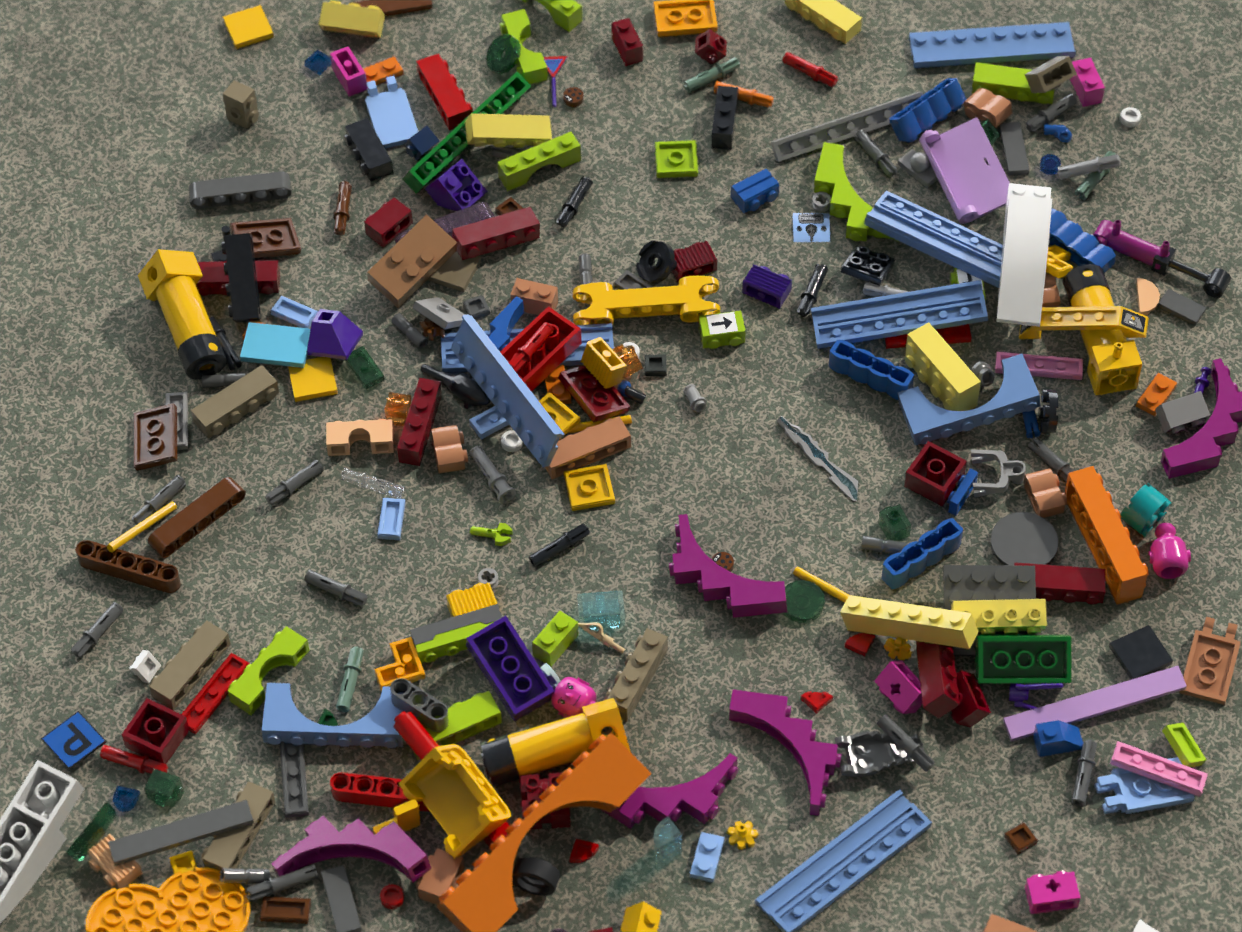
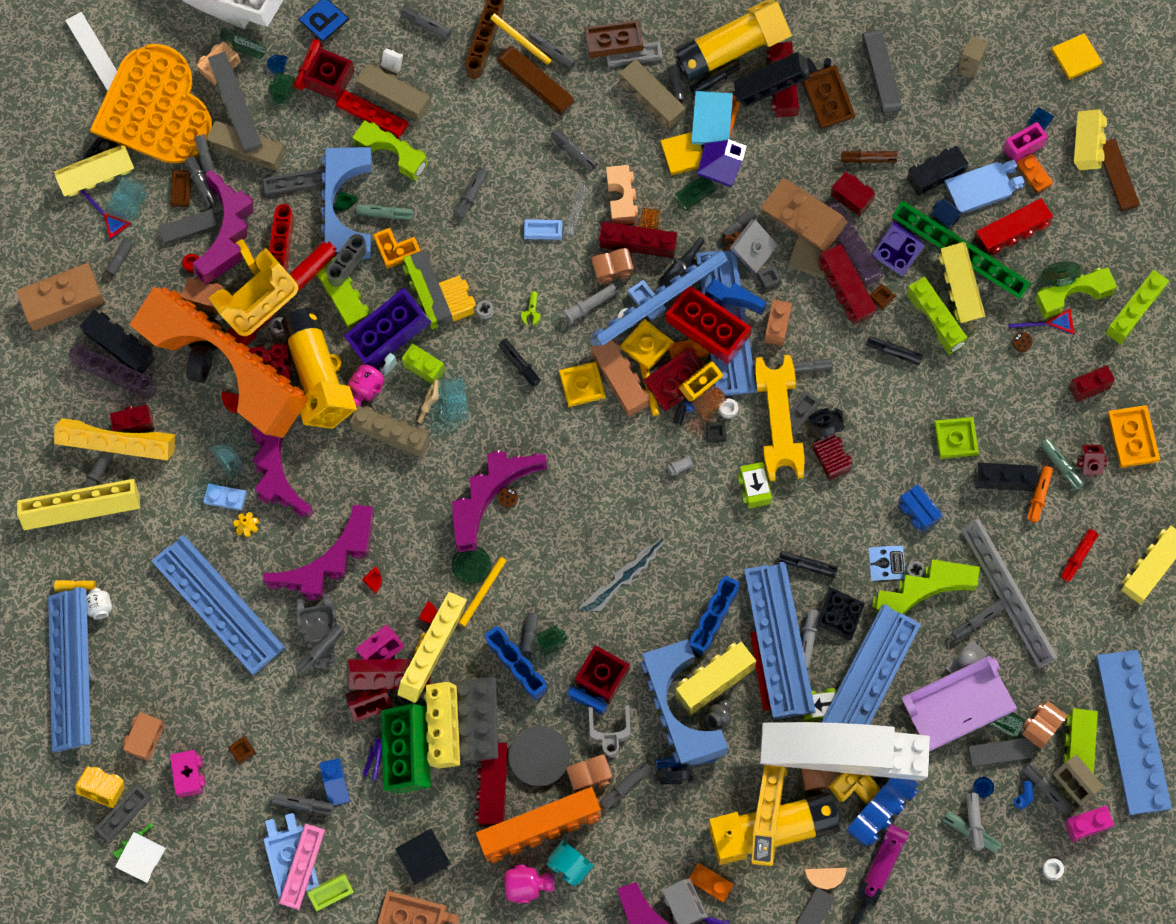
camera: 90 degrees right, 15 degrees up
(183, 862) = (219, 112): yellow tile -> none
(293, 312) = (753, 131): light blue tile -> none
(524, 354) = (699, 313): red axle -> none
(767, 286) = (809, 522): dark purple brick -> none
(928, 109) = (1033, 665): blue brick -> none
(1046, 365) = (737, 773): bright pink tile -> none
(1097, 702) = (370, 815): lavender tile -> none

